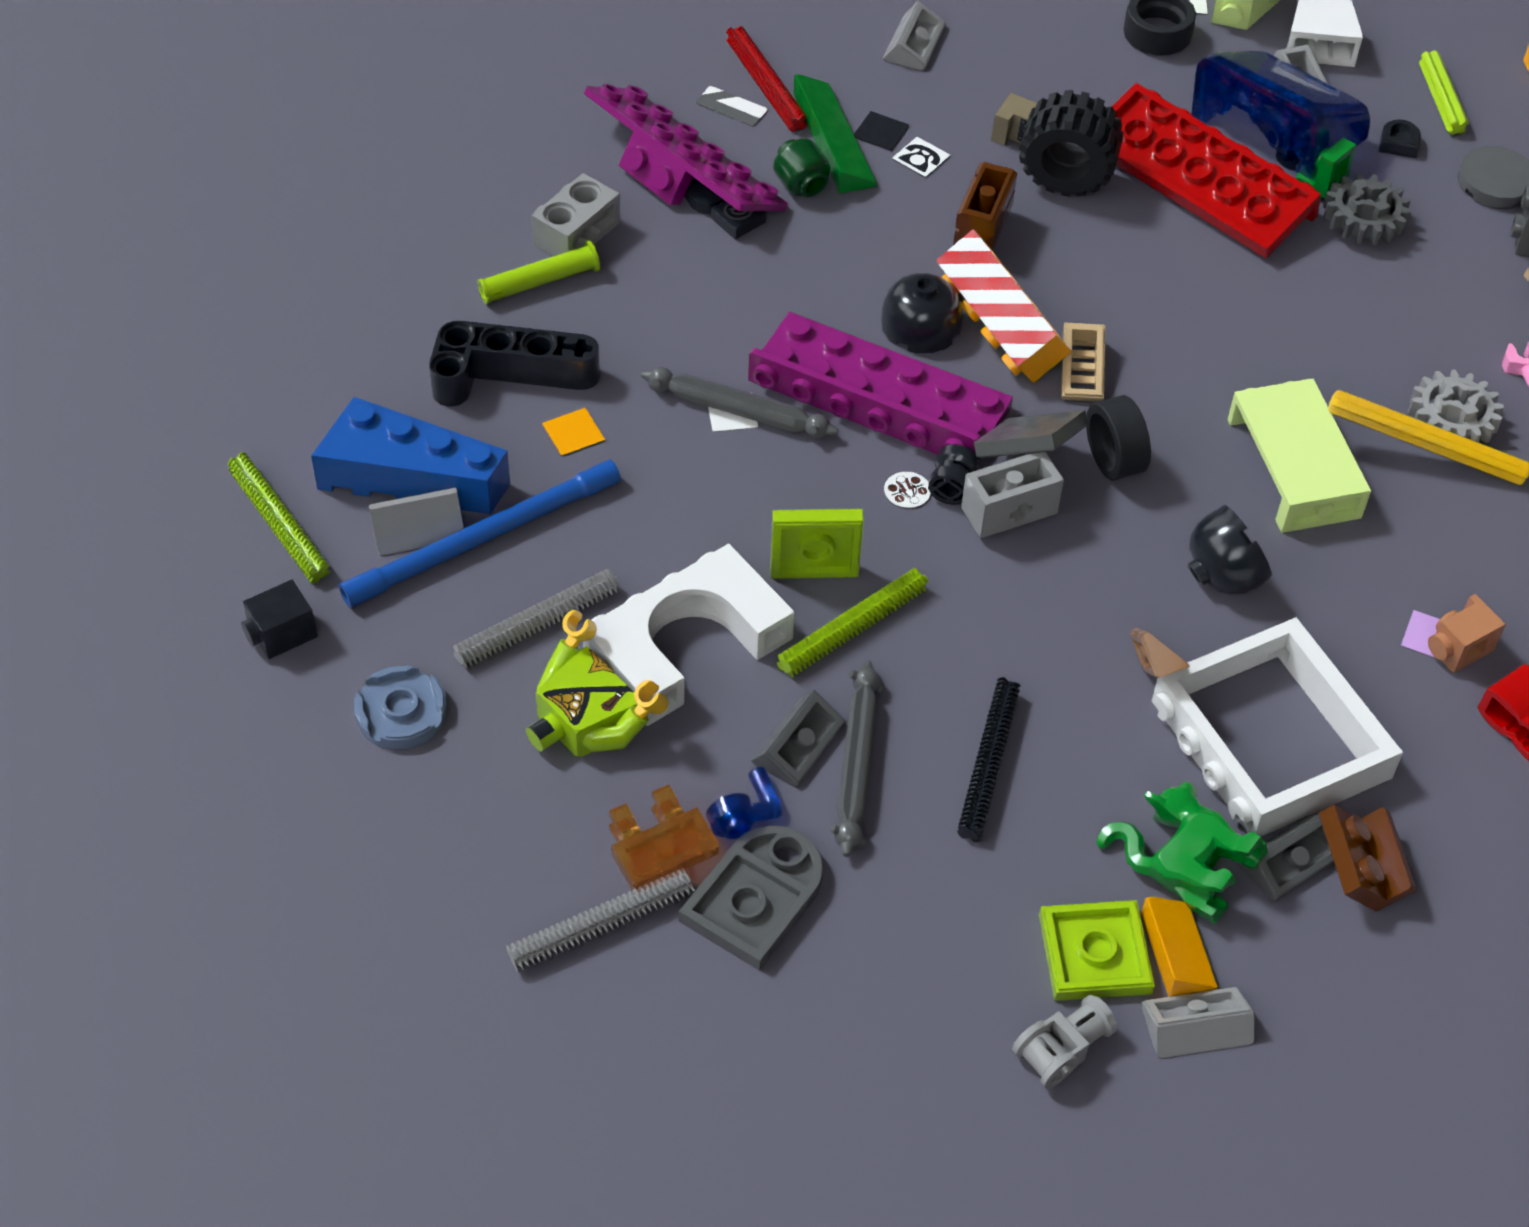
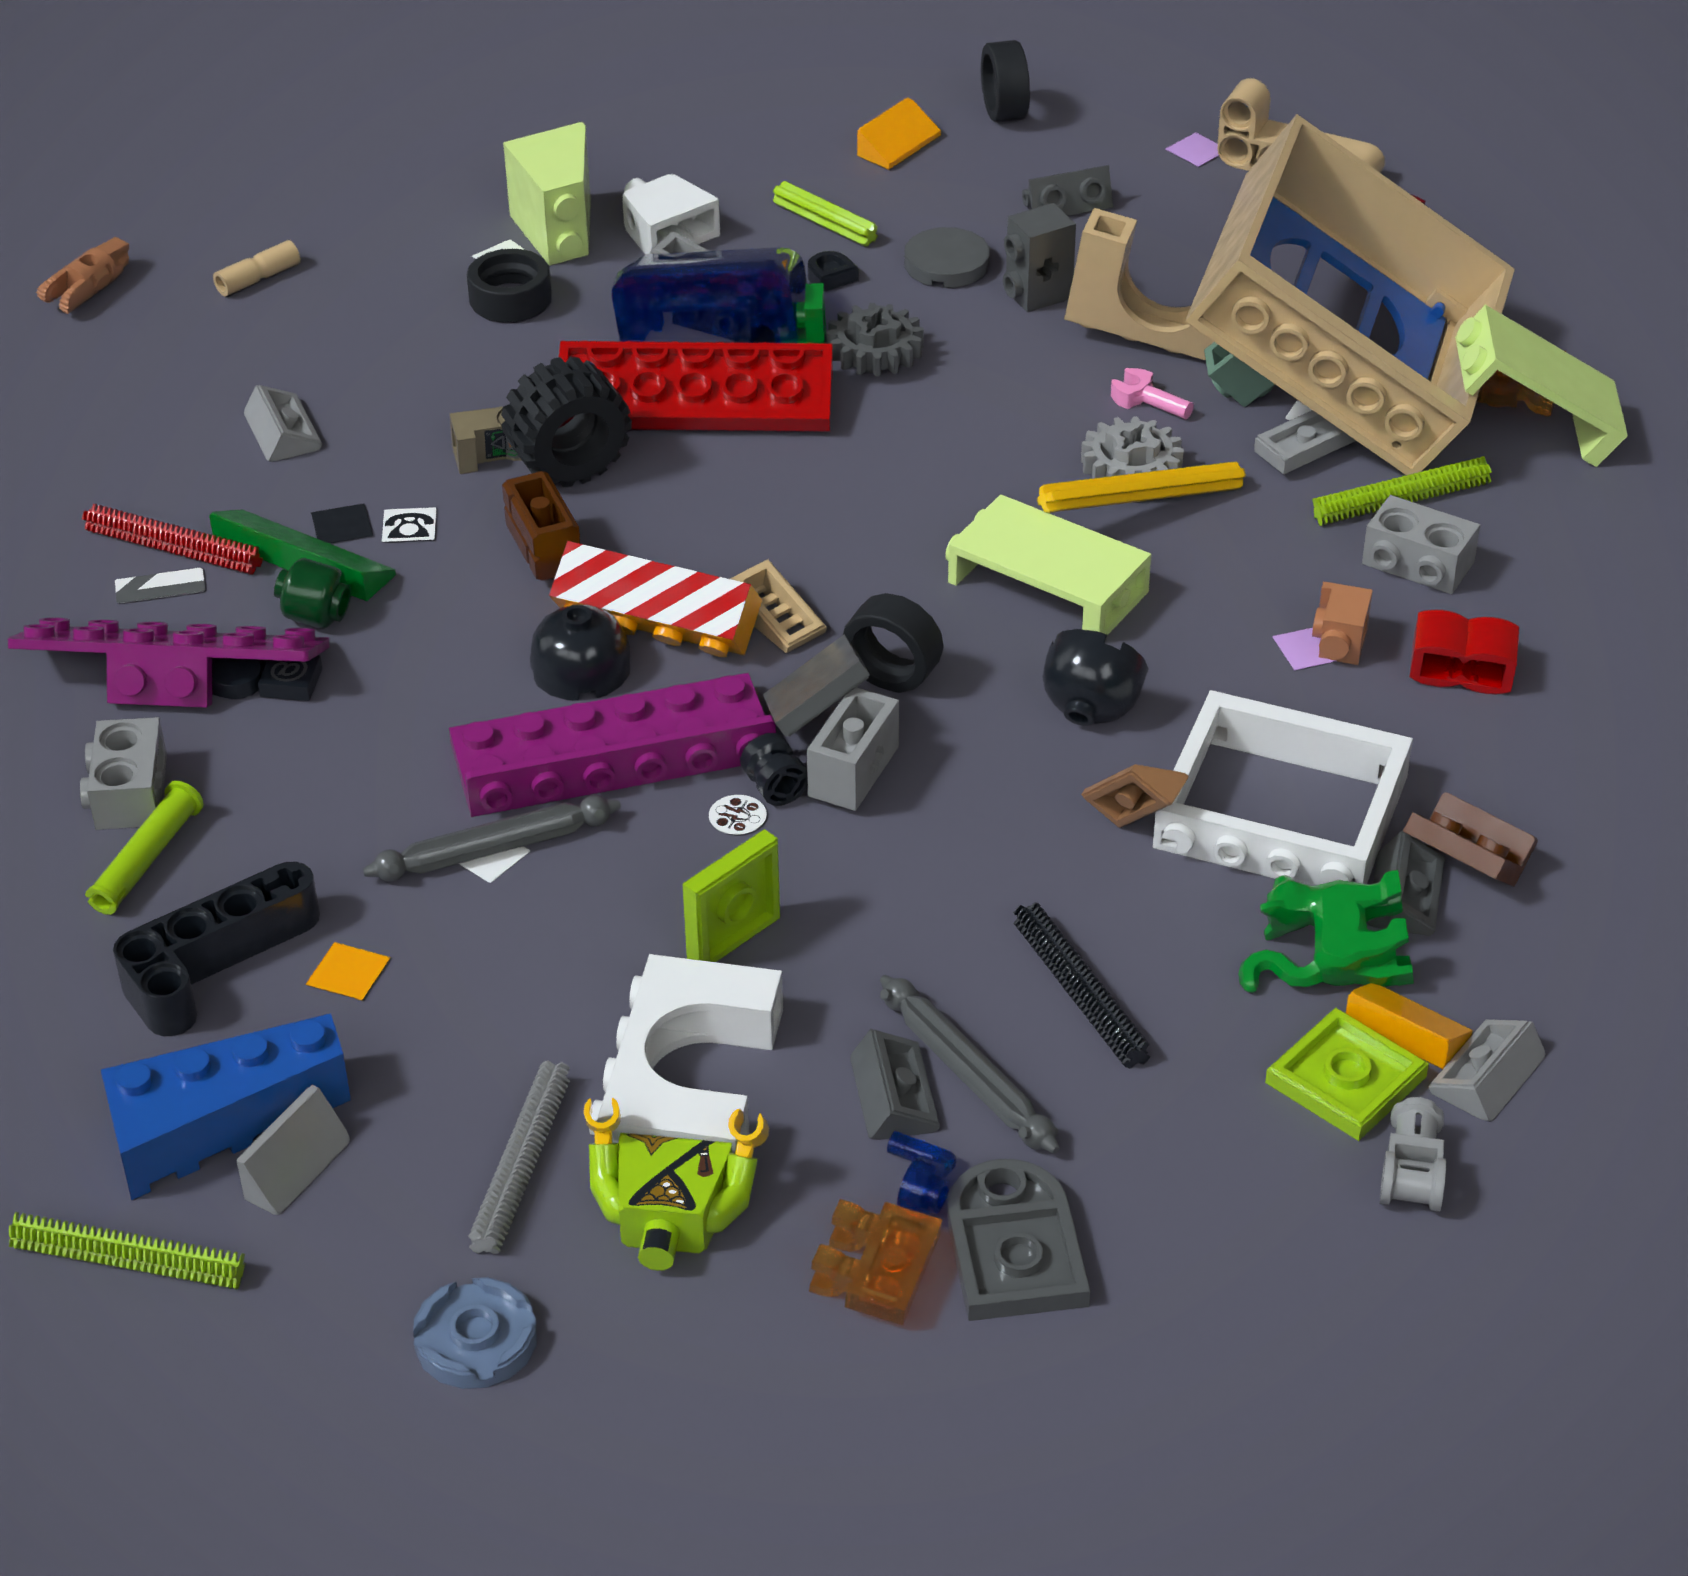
camera: 40 degrees left, 10 degrees down
(279, 619) = (254, 1337): black brick -> none
(380, 579) = (313, 1232): blue piece -> none
(599, 918) = (902, 1371): light grey axle -> none
(851, 622) = (827, 956): lime axle -> none

